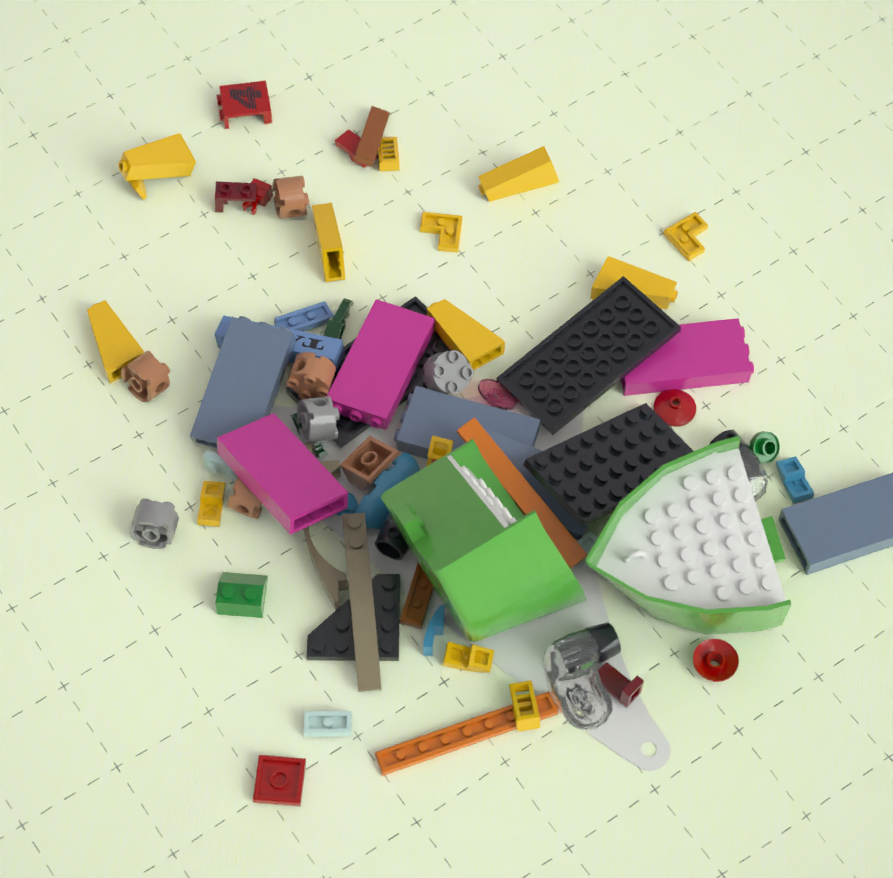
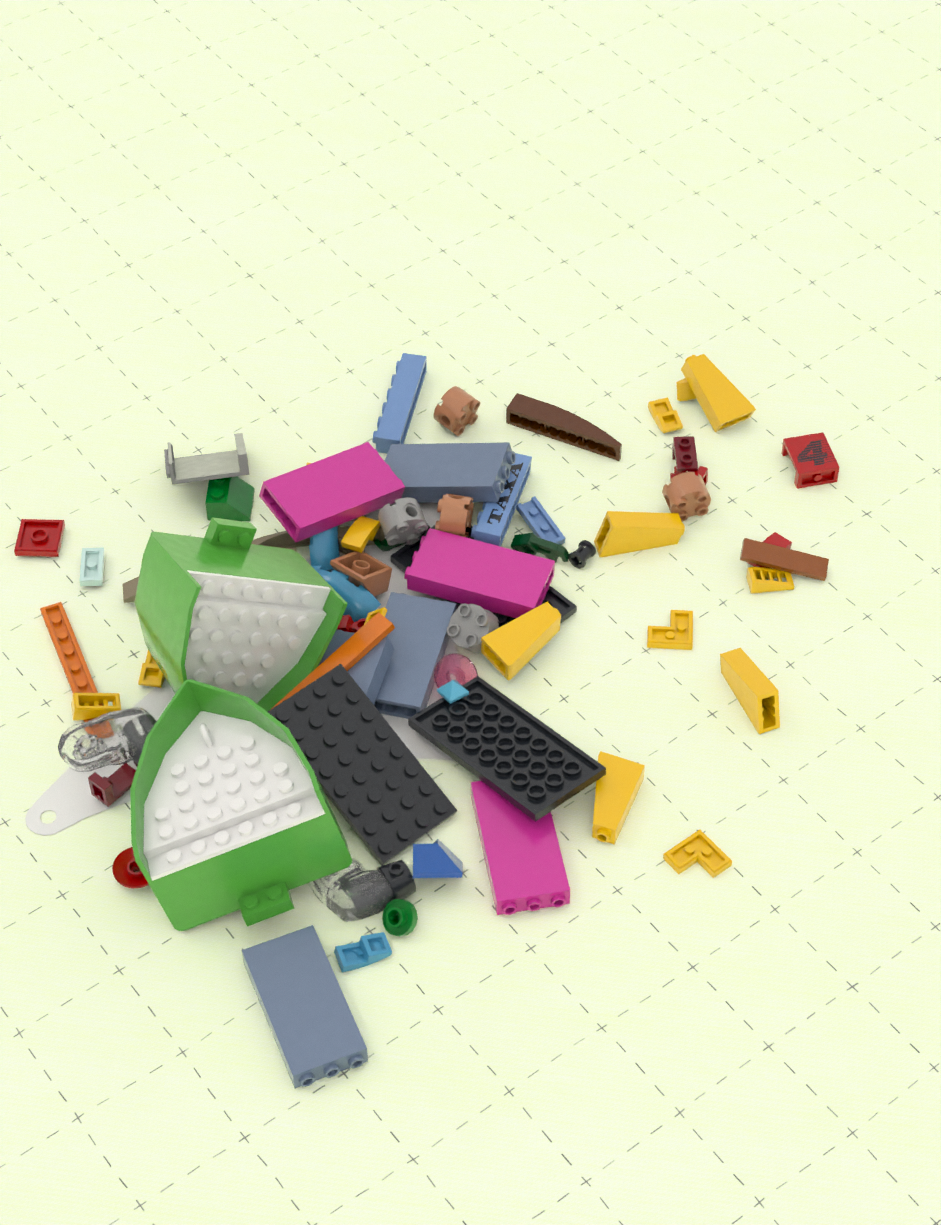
camera: 90 degrees right, 10 degrees down
(113, 340) = (499, 388): yellow slope -> none
(120, 430) = (400, 402): none -> medium blue brick
(154, 523) = (297, 429): light grey brick -> none
(171, 210) = (664, 415): none -> yellow slope
(171, 294) = (561, 426): none -> reddish brown slope
(202, 601) = (207, 466): none -> light grey panel
(331, 459) = (360, 533): none -> yellow slope
(348, 288) = (582, 554): none -> black bush
(519, 395) = (452, 691): none -> medium azure slope
(675, 414) = (466, 846): red dish -> none
(713, 416) = (435, 861): none -> blue slope

